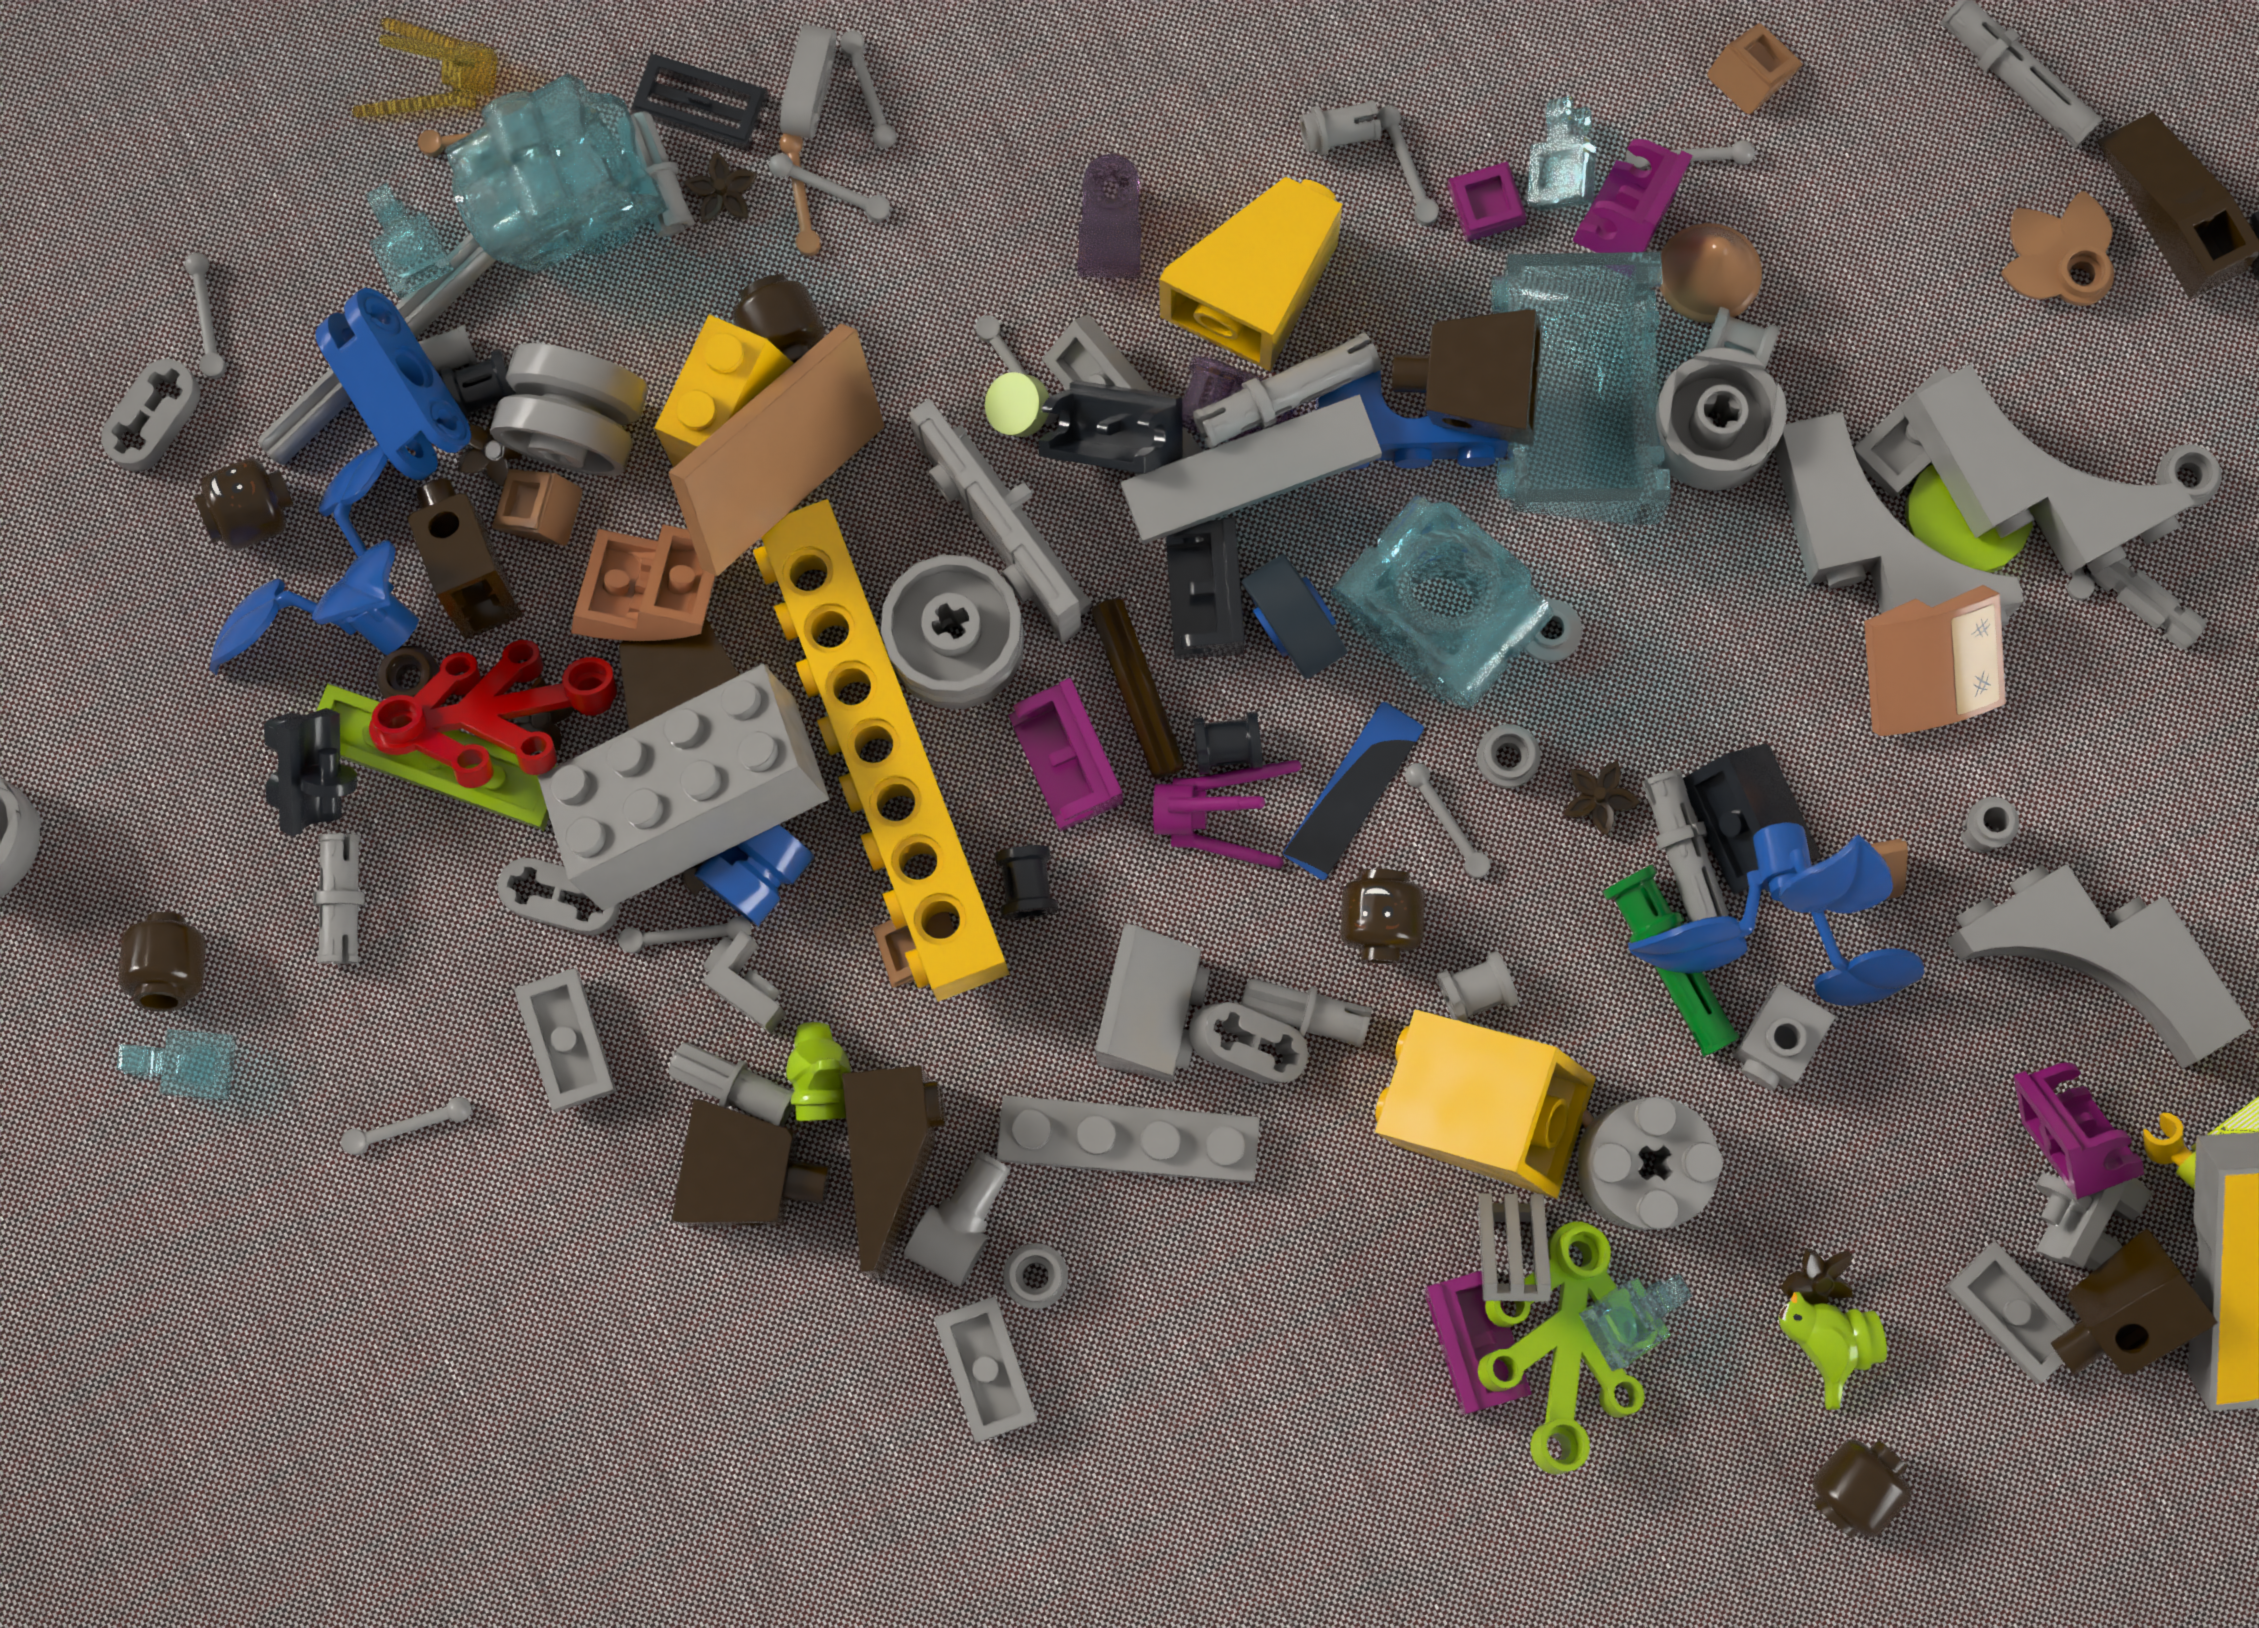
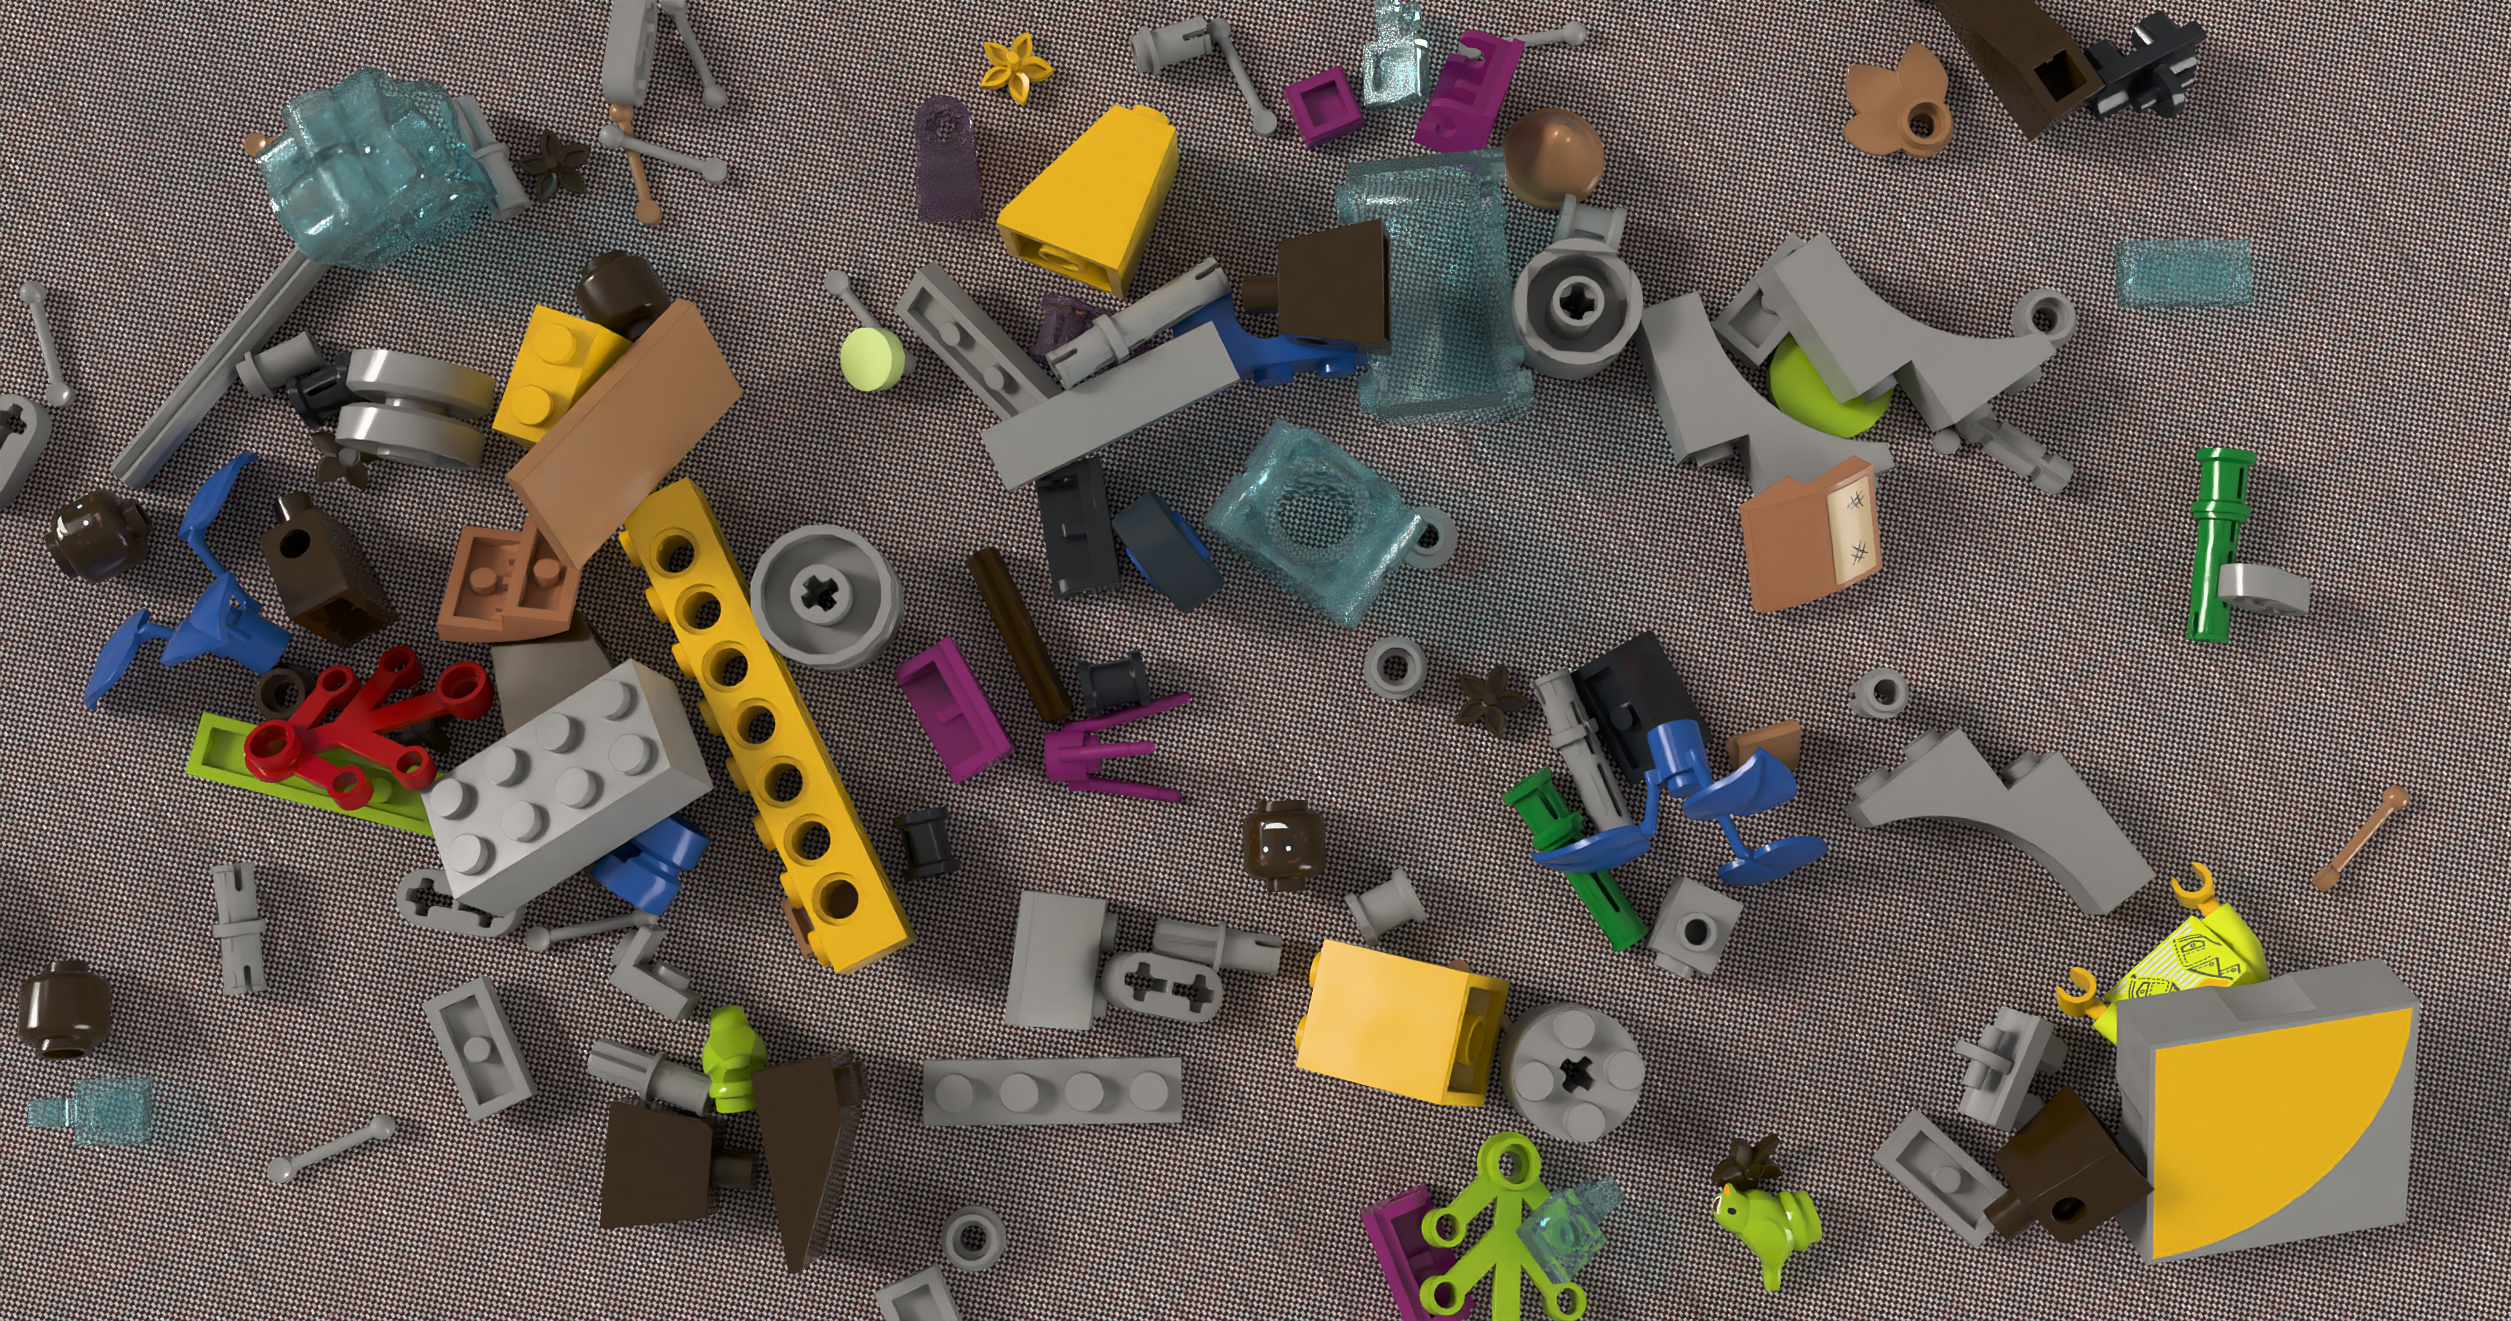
camera: 10 degrees left, 5 degrees up
(309, 769) = (188, 803): black hips -> none
(392, 383) = (232, 400): blue piece -> none
(409, 248) = (244, 256): clear light blue plate -> none
(465, 66) = (281, 63): clear yellow plant -> none
(538, 506) = (403, 508): medium nougat slope -> none
(692, 124) = (575, 91): black tile -> none
(953, 1234) = (887, 1206): light grey pin -> none
(1030, 562) = (902, 519): light grey container -> none
(1114, 427) = (969, 376): black hinge -> none
(1184, 135) = (1015, 67): none -> yellow plant
(1353, 790) = (1245, 716): black sticker -> none
(1476, 863) = (1372, 779): light grey hinge -> none
(1512, 1214) = (1439, 1125): light grey tile -> none
(2074, 1132) = (1990, 998): magenta hinge -> none

